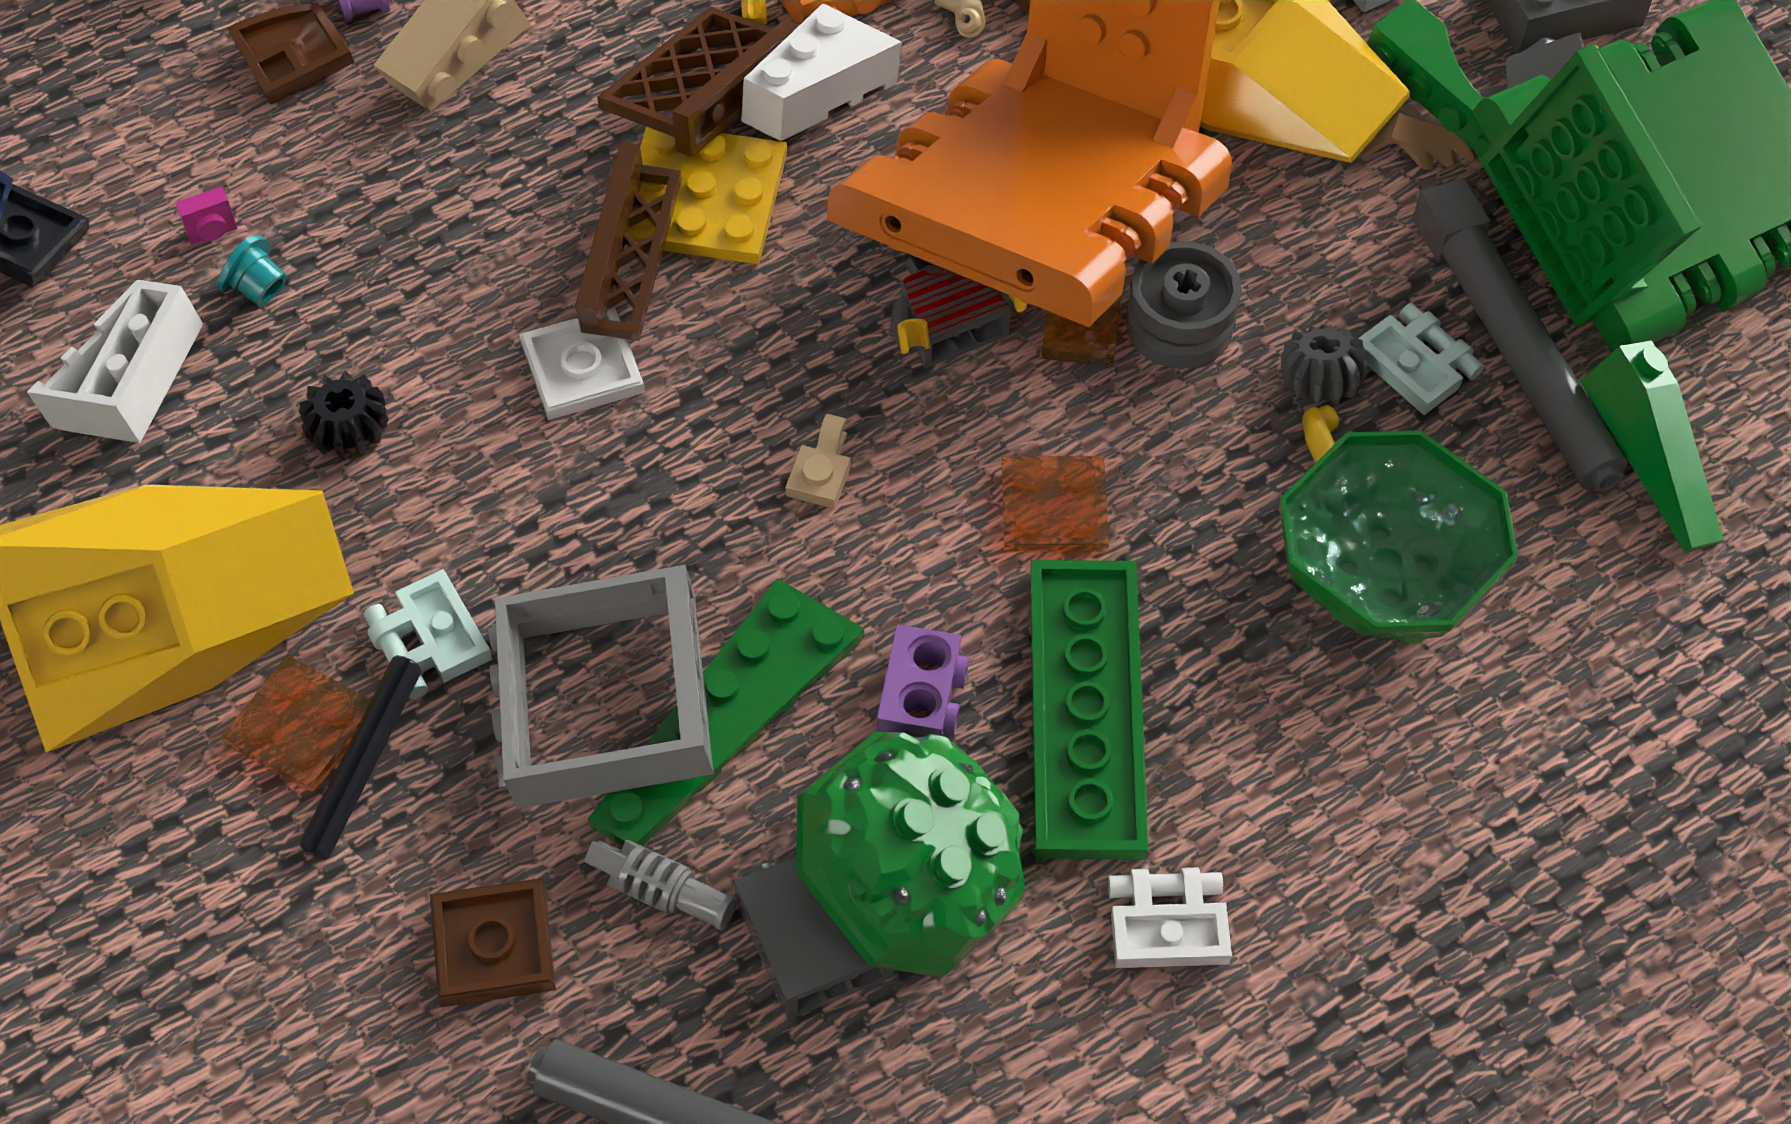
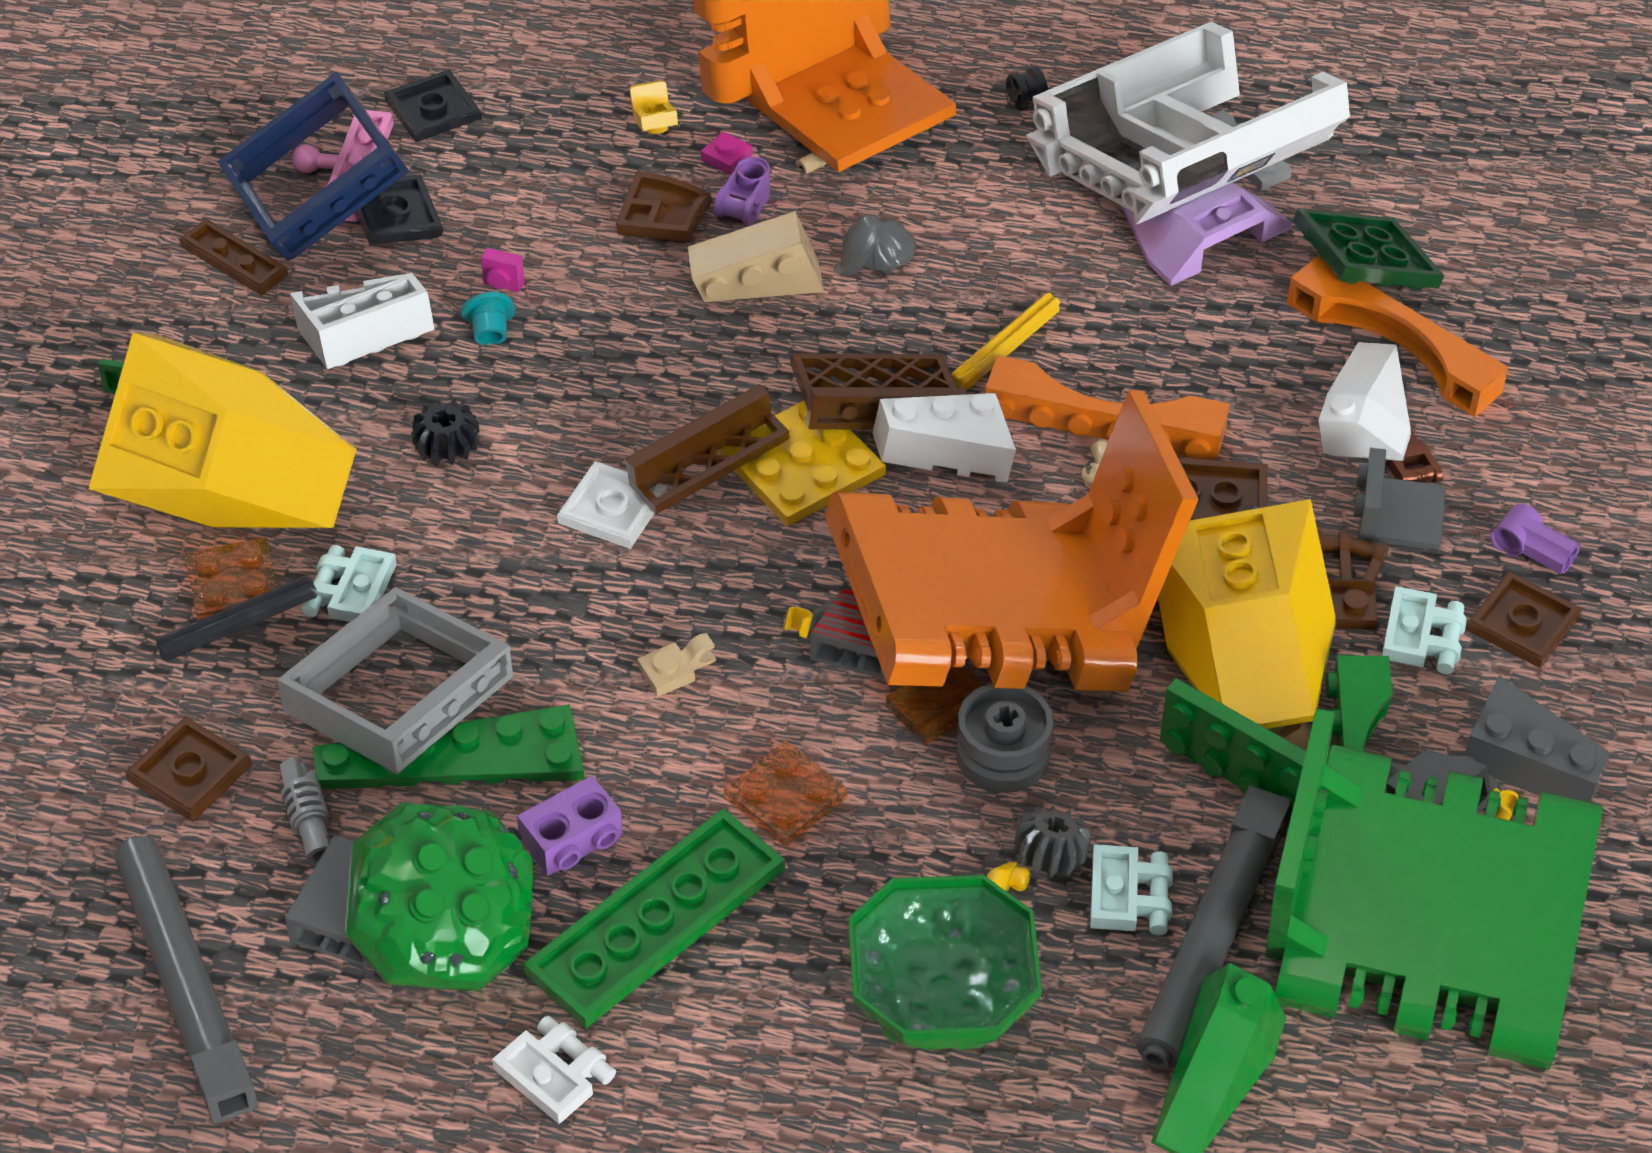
camera: 45 degrees right, 10 degrees down
(1378, 166) = (1229, 743): none -> green plate

